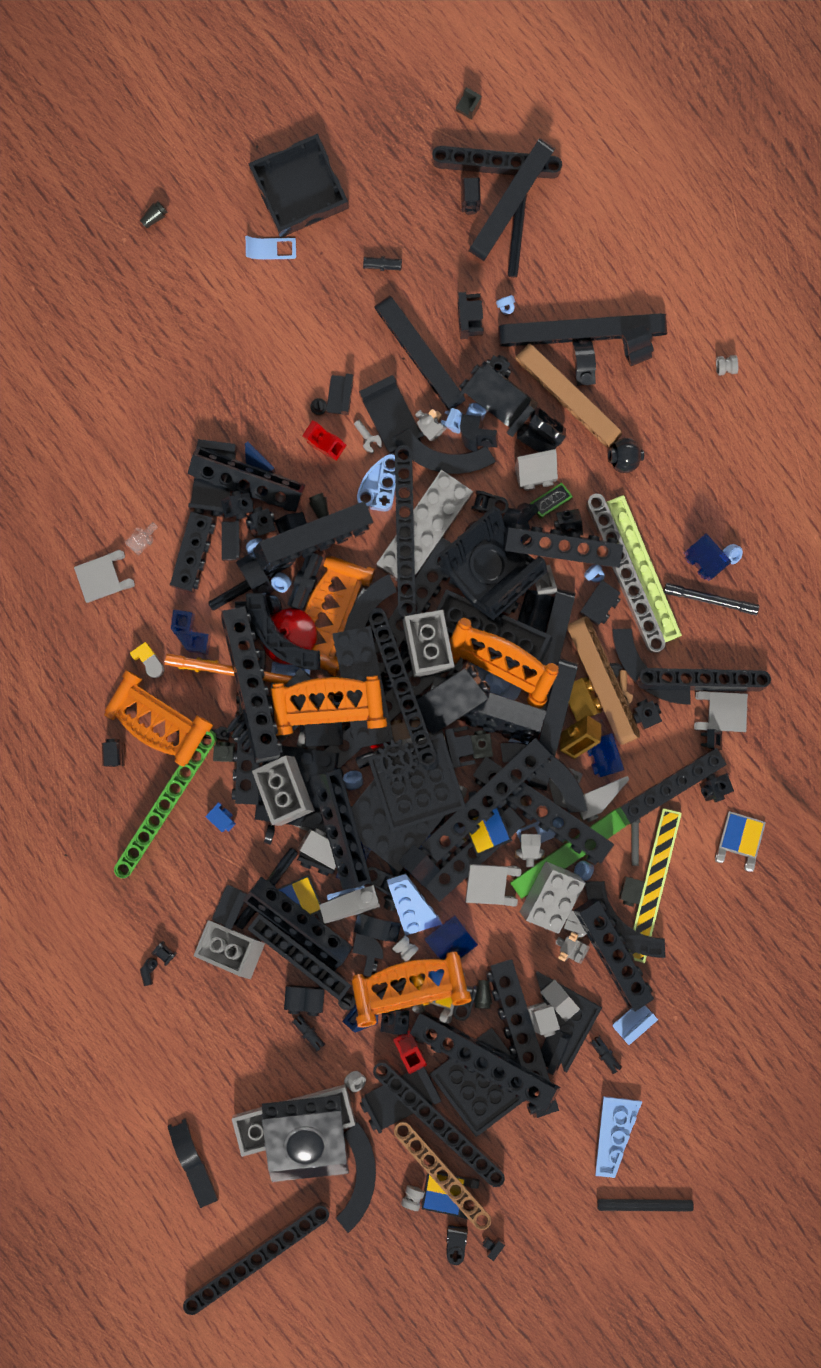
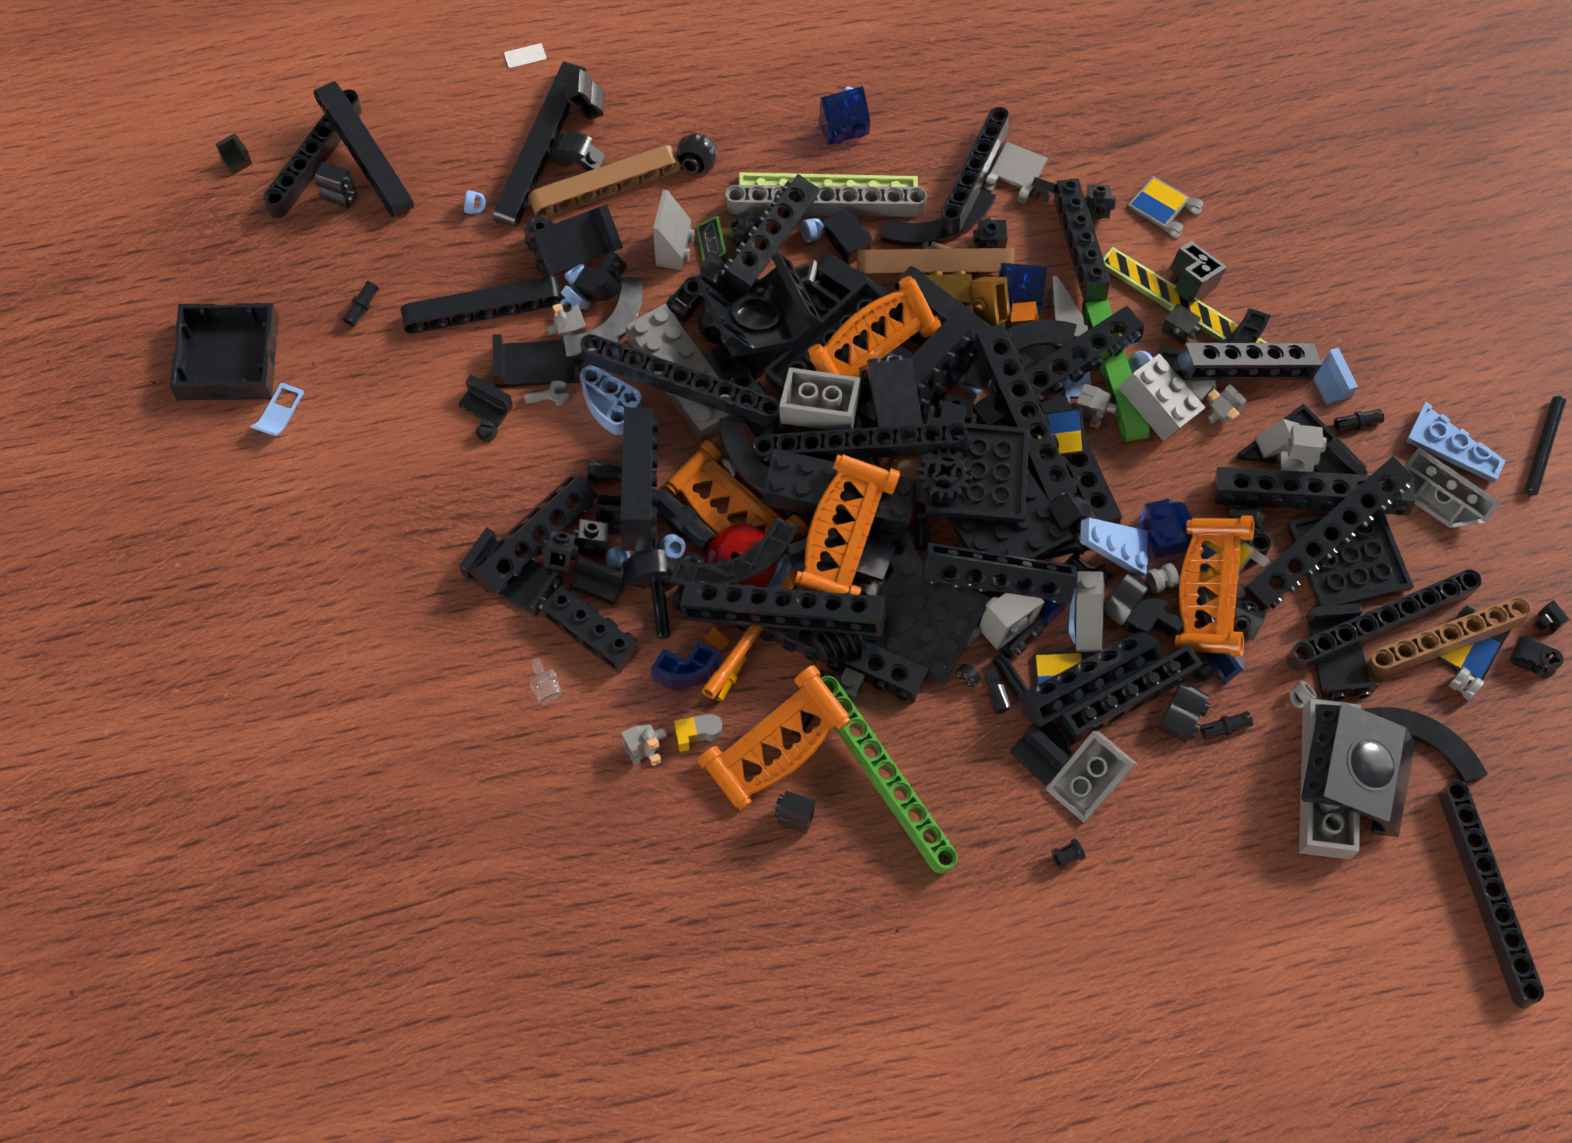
camera: 70 degrees left, 20 degrees down
(100, 578) = (569, 750): light grey flag -> none
(123, 626) = (643, 742): none -> light grey piece
(146, 970) = (1080, 885): black arm -> none
(154, 214) = (167, 516): pearl dark grey cone -> none
(192, 1164) = (1346, 924): black piece -> none
(221, 818) = (926, 722): blue brick -> none
(222, 647) = (717, 640): none -> orange piece
(255, 459) = (508, 517): dark blue slope -> none
(264, 860) = (996, 692): none -> black bar
(283, 790) = (925, 624): light grey brick -> none
(324, 441) = (531, 437): red brick -> none
(410, 1052) = (1294, 618): red brick -> none
(470, 315) = (462, 239): black panel -> none
(488, 884) = (1120, 460): light grey flag -> none
(516, 240) = (416, 172): black axle -> none
(541, 432) = (634, 215): black piece -> none
(567, 1141) = (1447, 493): none -> light grey wedge
(582, 766) = (1024, 313): none -> orange panel
(635, 843) = (1134, 306): dark grey piece -> none
(663, 279) = (525, 55): none -> white sticker
(682, 889) = (1197, 271): none -> black brick
(729, 364) = (647, 29): light grey wheel -> none
(742, 606) = (869, 159): black piece -> none

